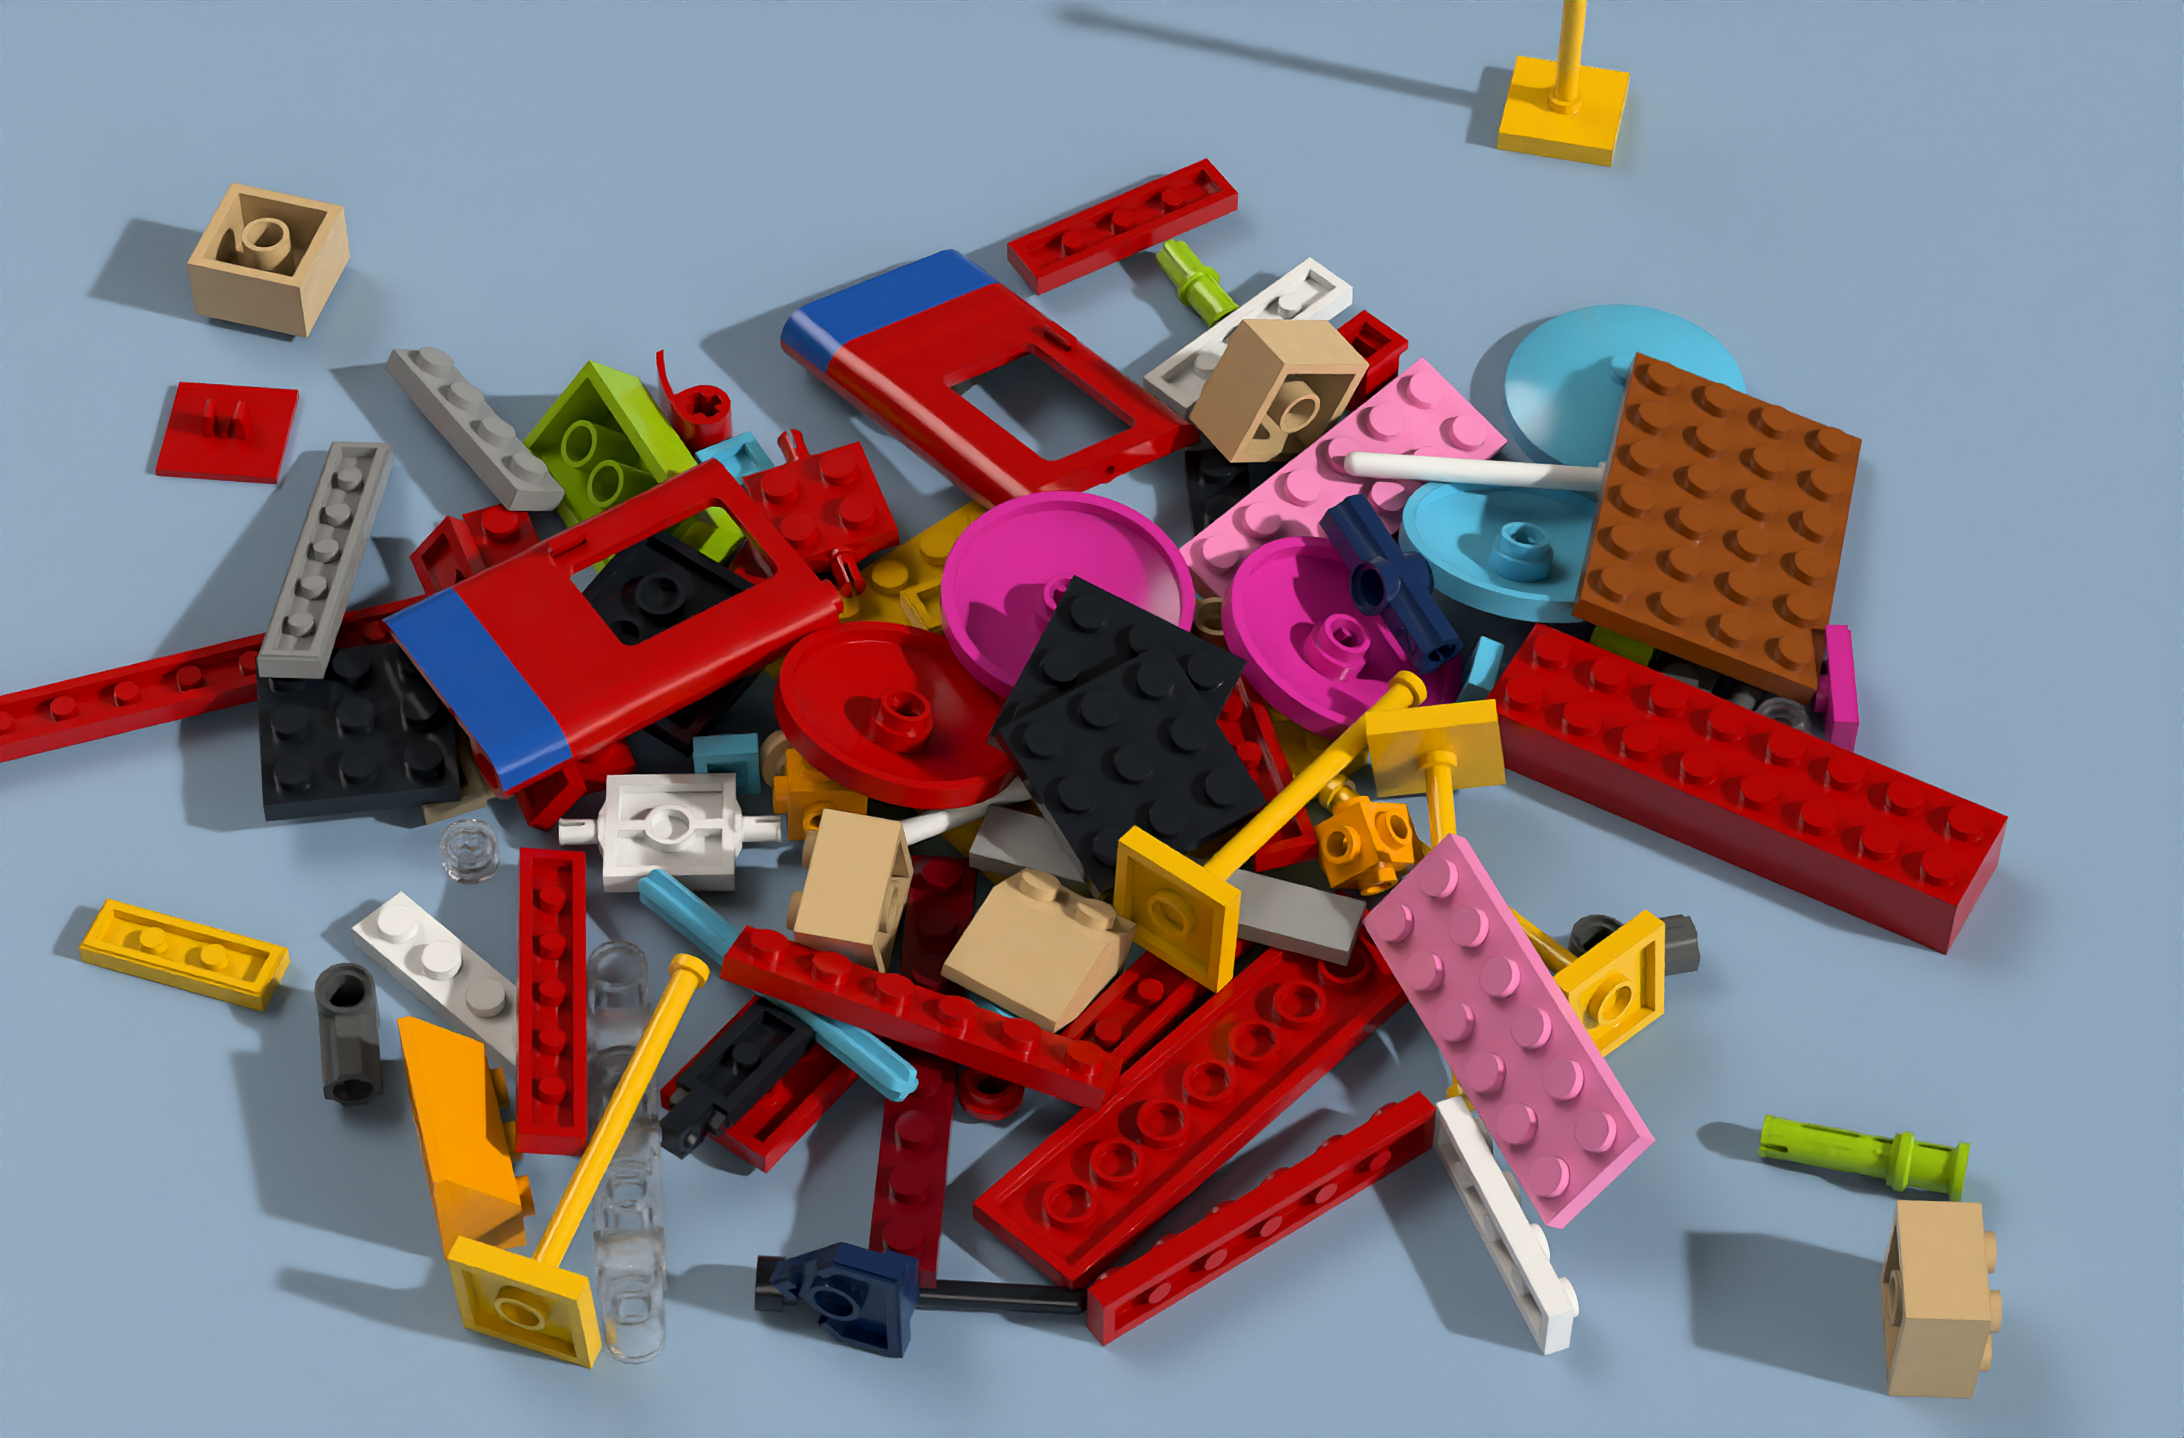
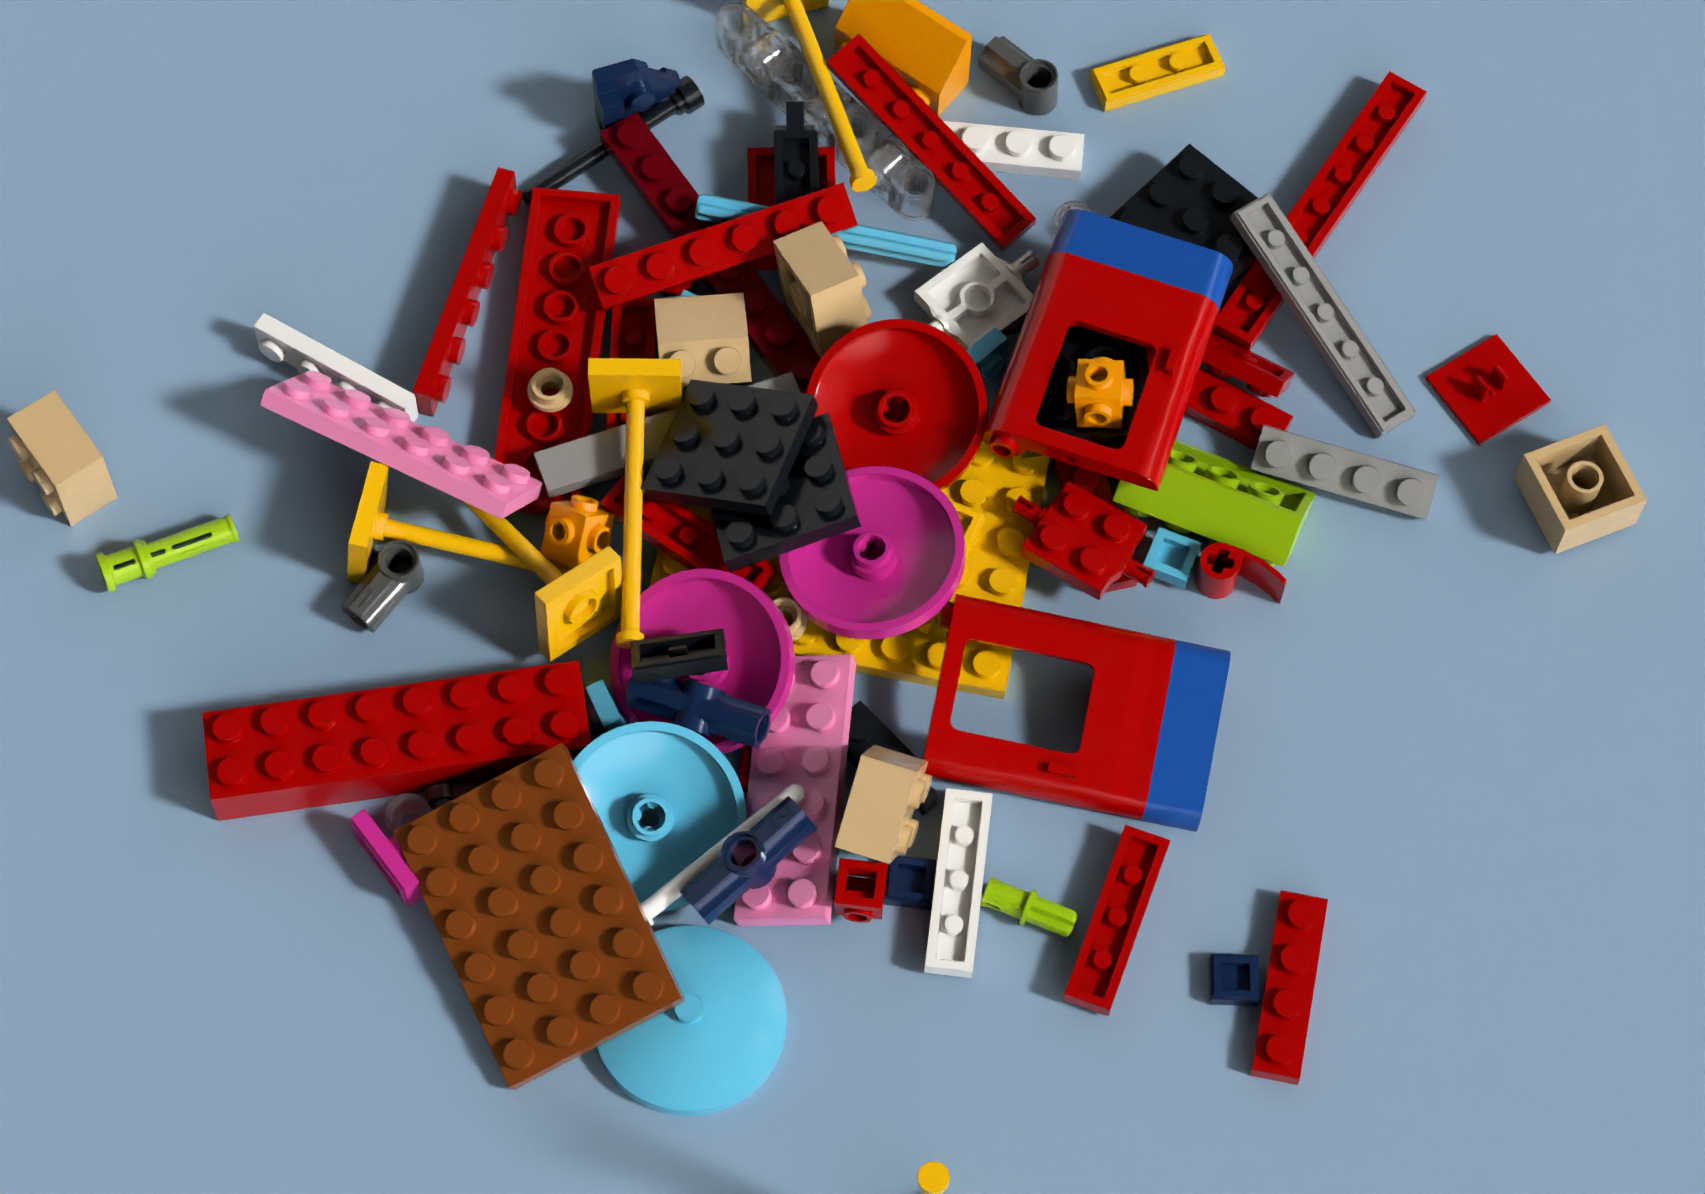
camera: 140 degrees right, 15 degrees up
(675, 564) = (1100, 392): none -> light orange brick
(1010, 101) = (1288, 987): none -> red plate
(1056, 134) = (1234, 979): none -> dark blue tile
(1271, 999) = (550, 379): none -> tan plate
(1420, 646) = (678, 655): none -> black tile
(1431, 426) = (727, 878): none -> dark blue piece

